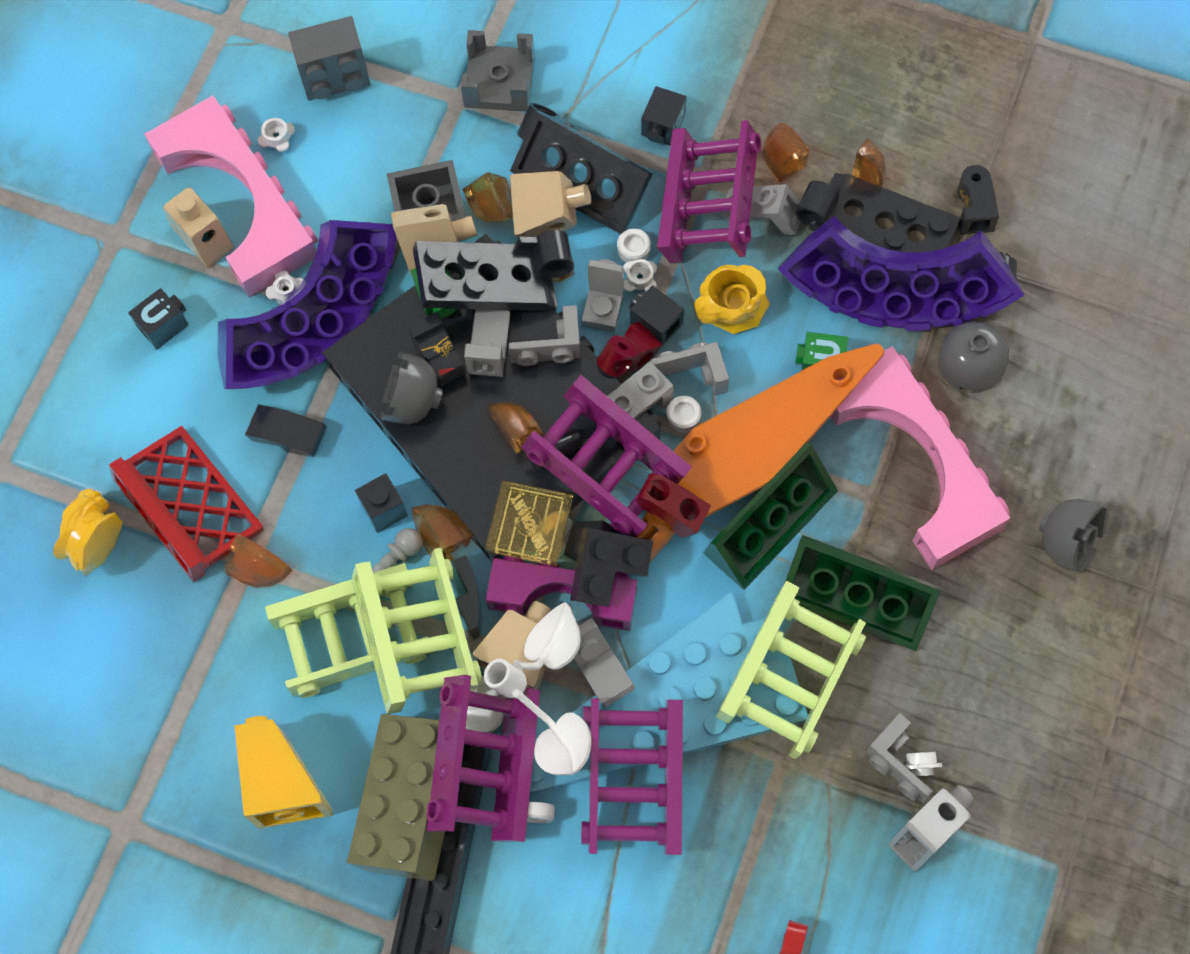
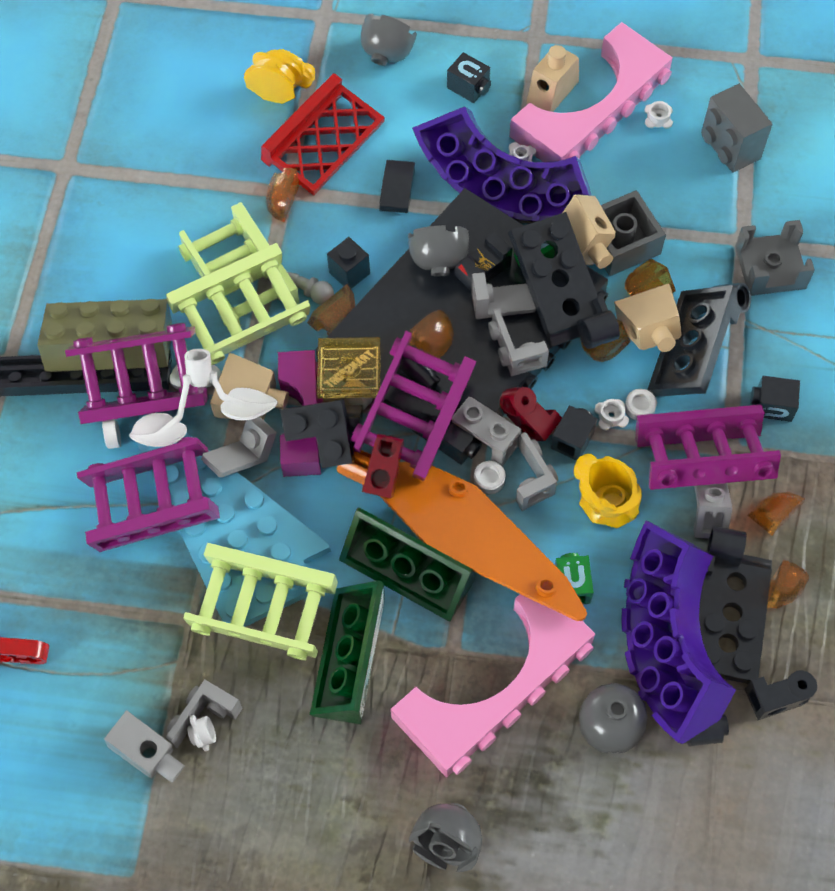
camera: 75 degrees right, 5 degrees down
(75, 397) = (386, 39): none -> dark grey cylinder
(274, 778) = (109, 241): yellow slope -> none
(469, 603) = (267, 349): black slope -> none
(604, 295) = (578, 390): light grey bracket -> none

